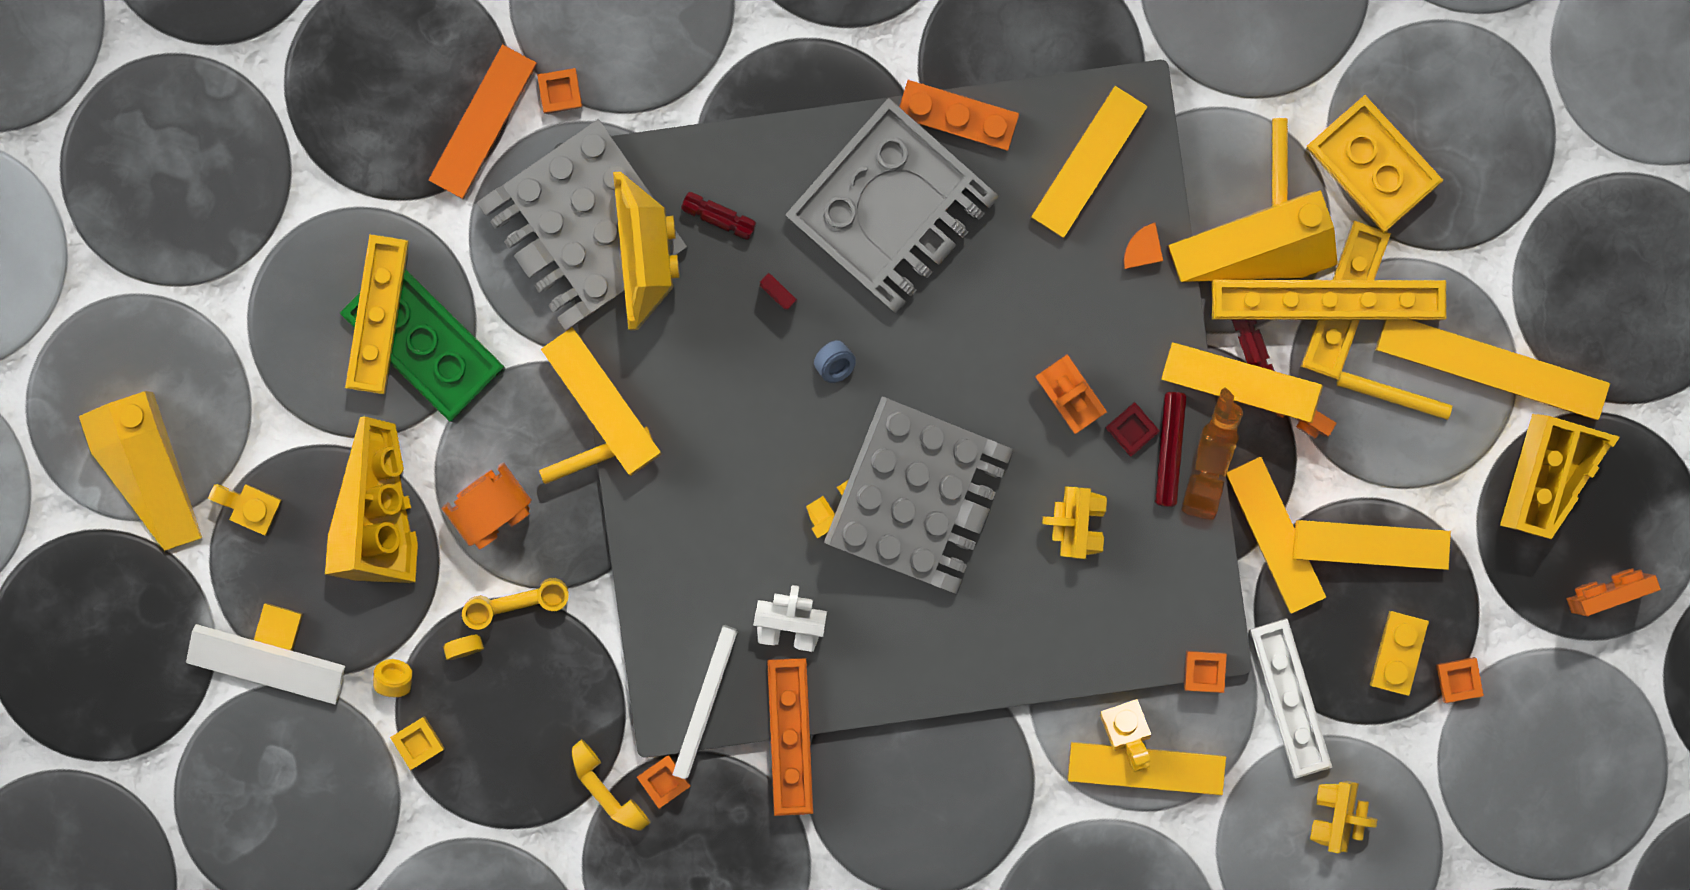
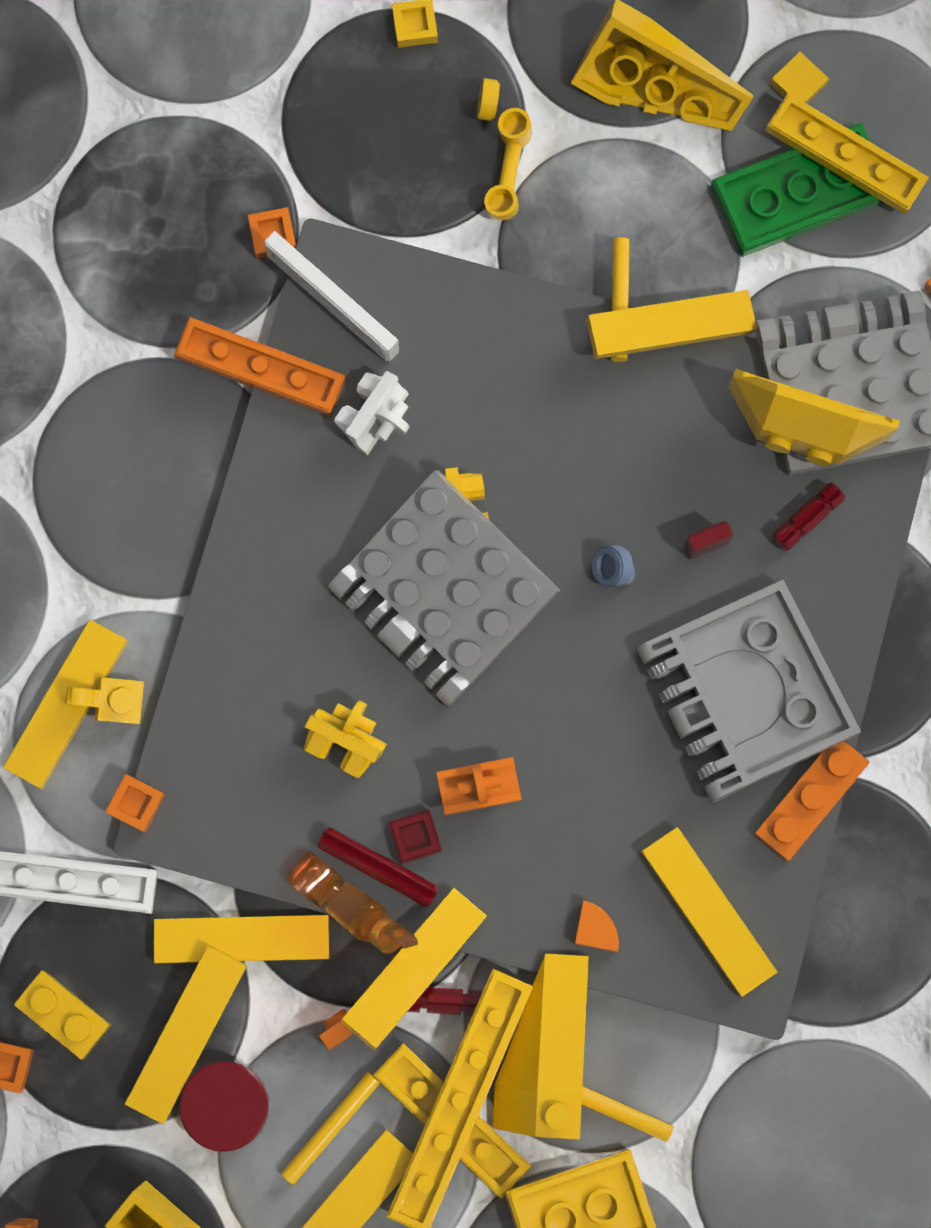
camera: 110 degrees right, 10 degrees down
(323, 383) = (799, 79): none -> yellow tile
(392, 678) = (487, 23): yellow tile -> none
(487, 506) = (616, 174): orange brick -> none
(627, 815) = (326, 164): yellow bar -> none
(1415, 488) = (224, 1106): none -> dark red tile

